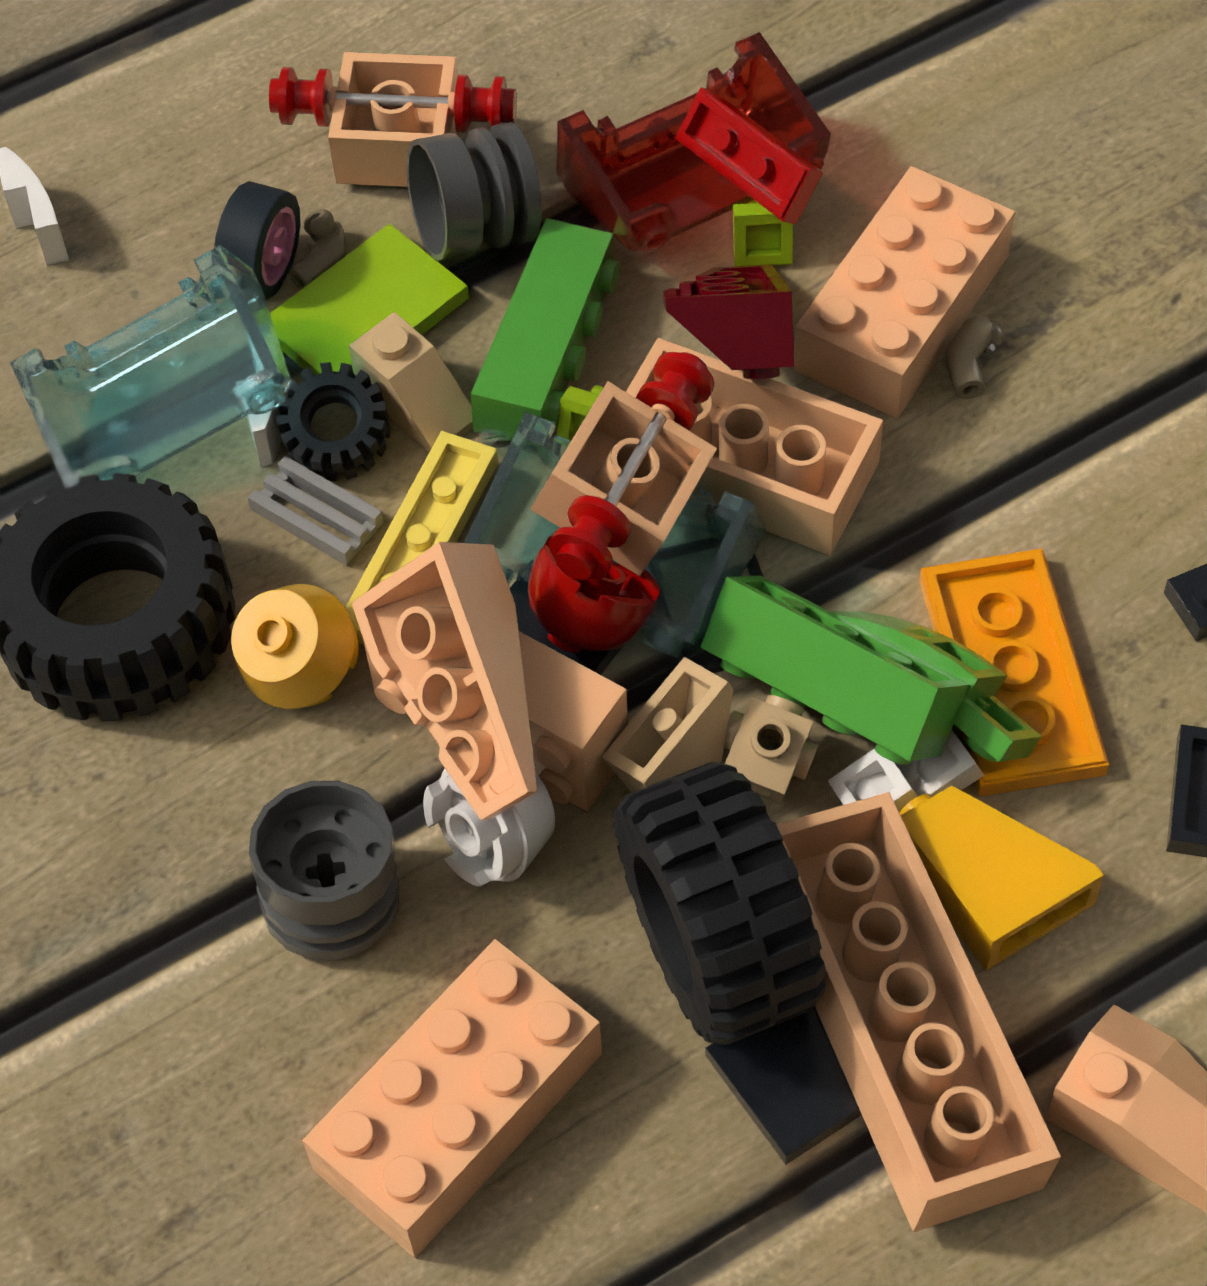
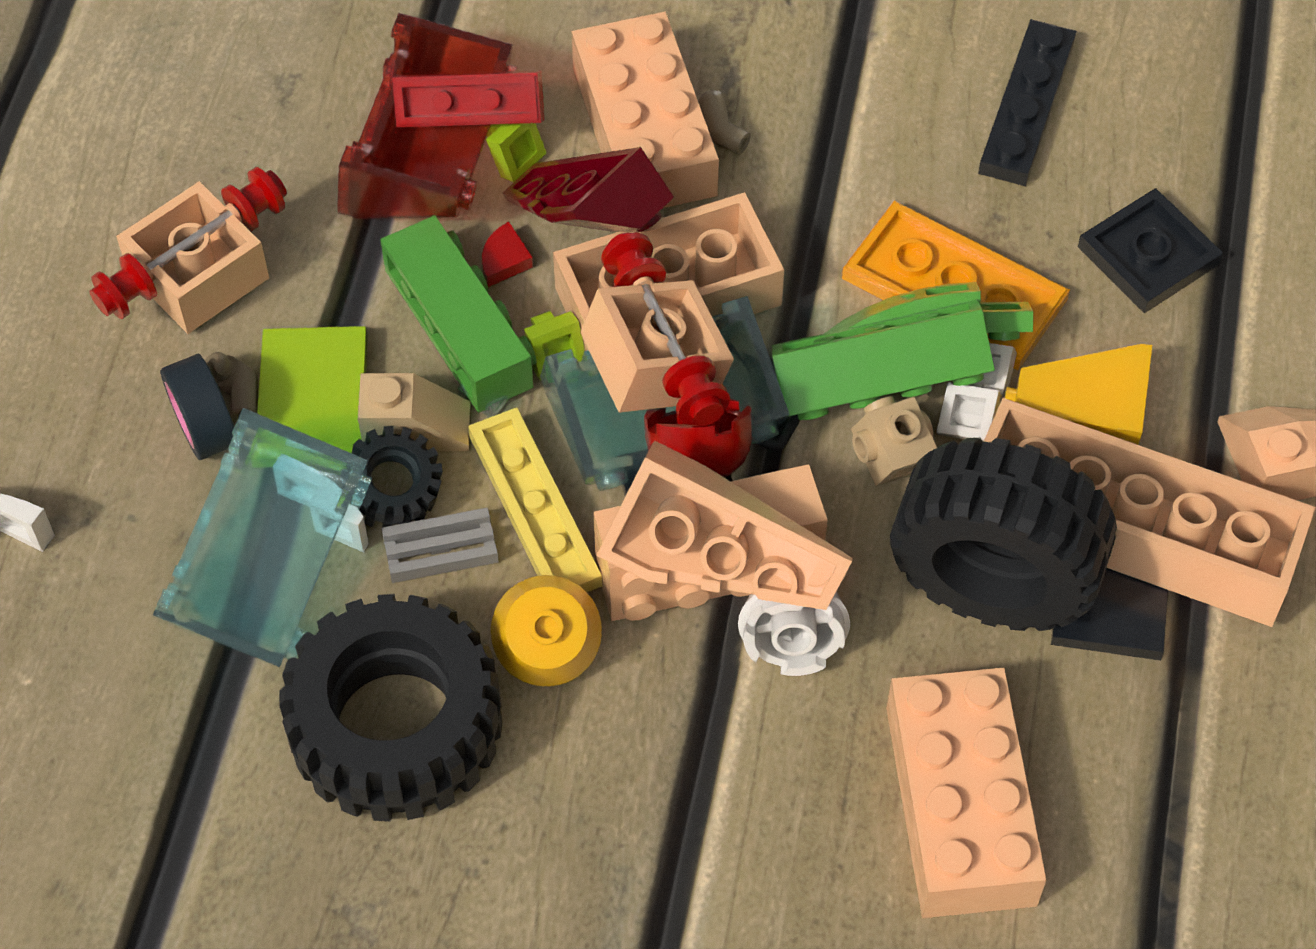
camera: 50 degrees left, 0 degrees up
(321, 839) = (741, 736): dark grey wheel -> none
(474, 190) = (315, 258): dark grey wheel -> none
(643, 321) = (504, 255): none -> red tile
(675, 729) = (846, 476): tan slope -> none

